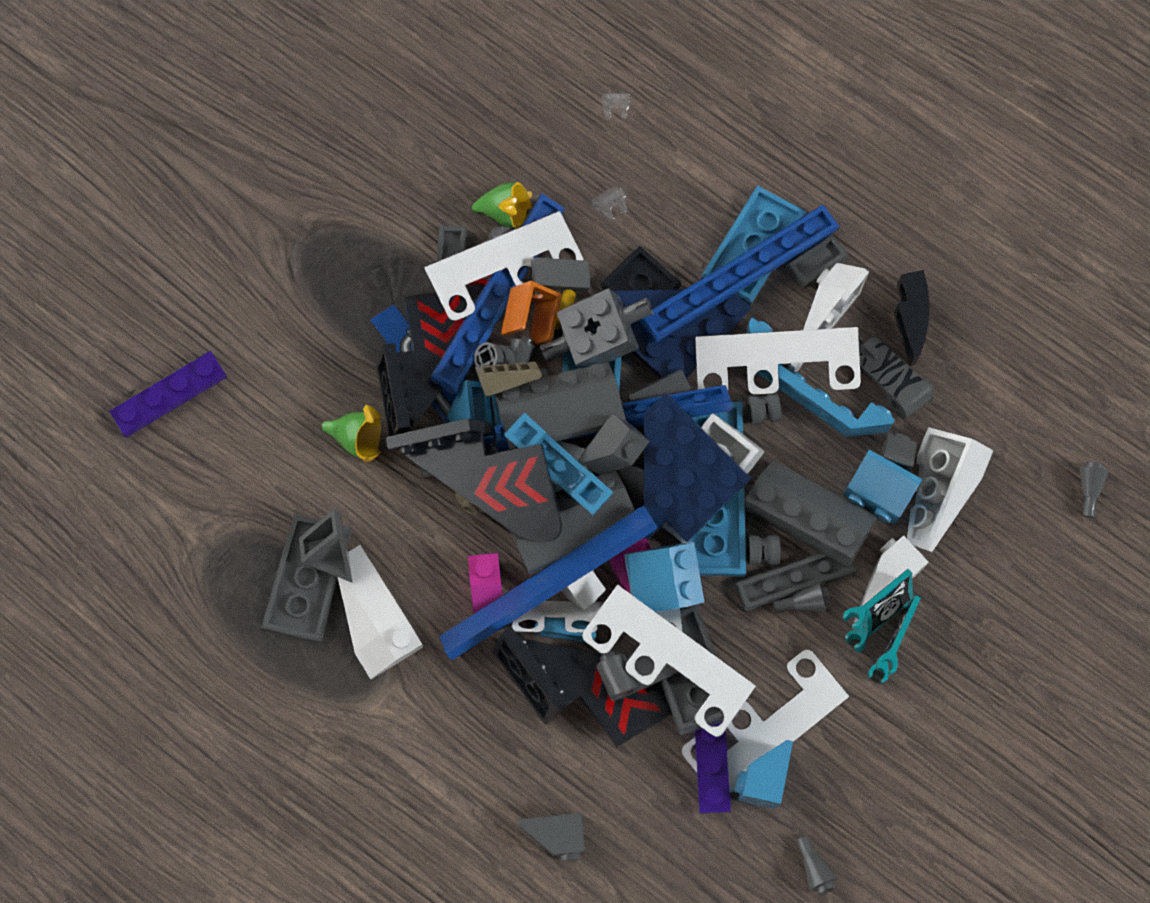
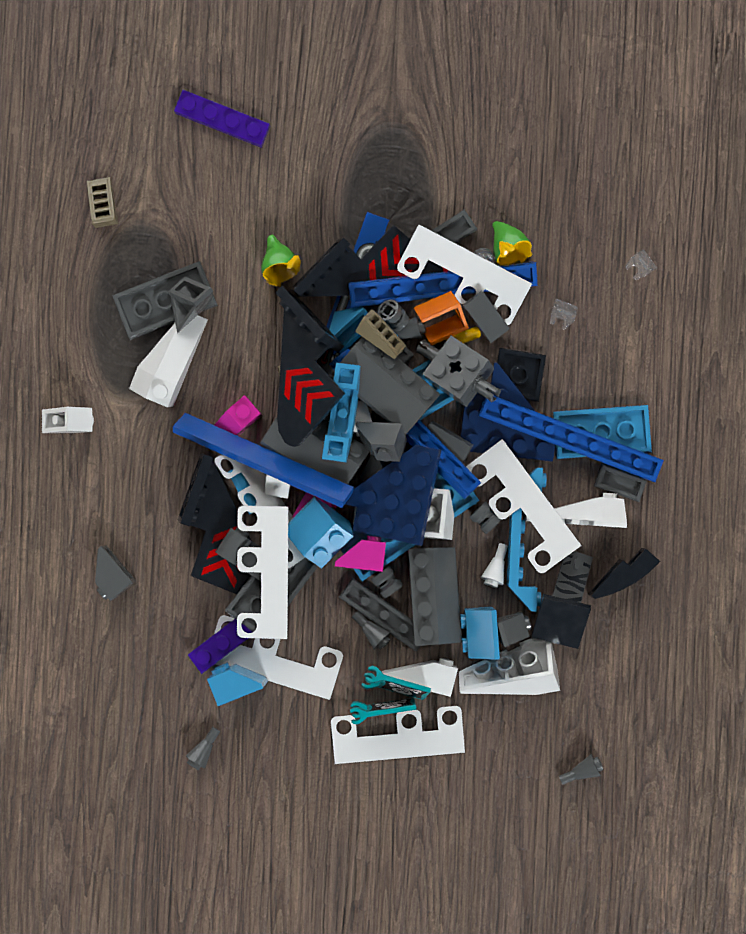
camera: 60 degrees right, 15 degrees up
(177, 582) = (107, 220): none -> dark tan slope
(355, 766) = (67, 420): none -> white slope
(721, 547) = (364, 555): none -> dark pink slope
(827, 438) = (495, 571): none -> white cone
(921, 401) = (561, 621): none -> black tile
(948, 650) = (405, 744): none -> white piece

